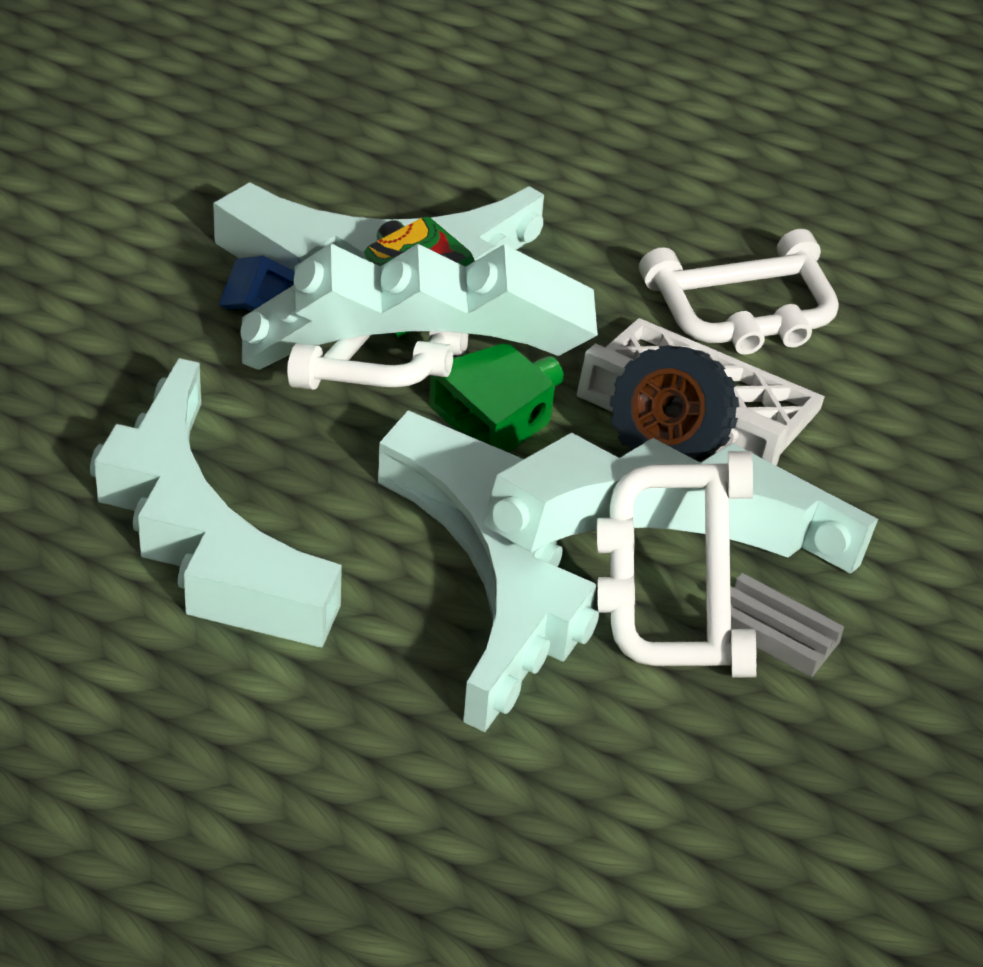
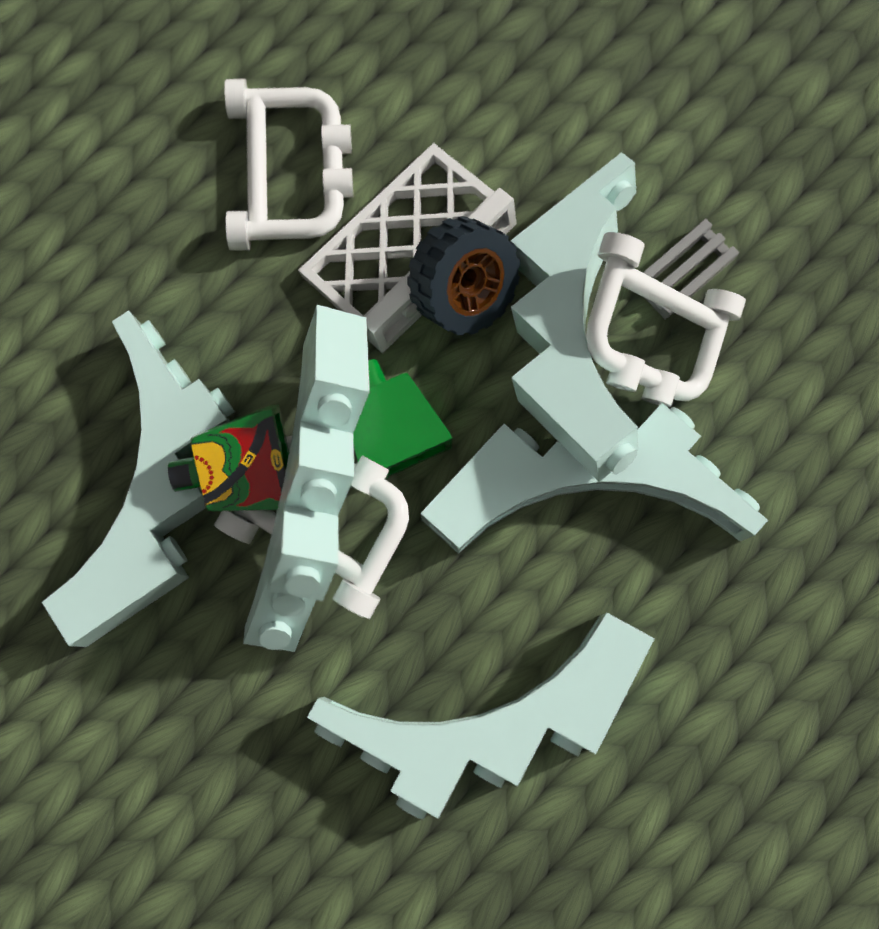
camera: 70 degrees left, 35 degrees up
(255, 282) = (194, 615): blue panel -> none

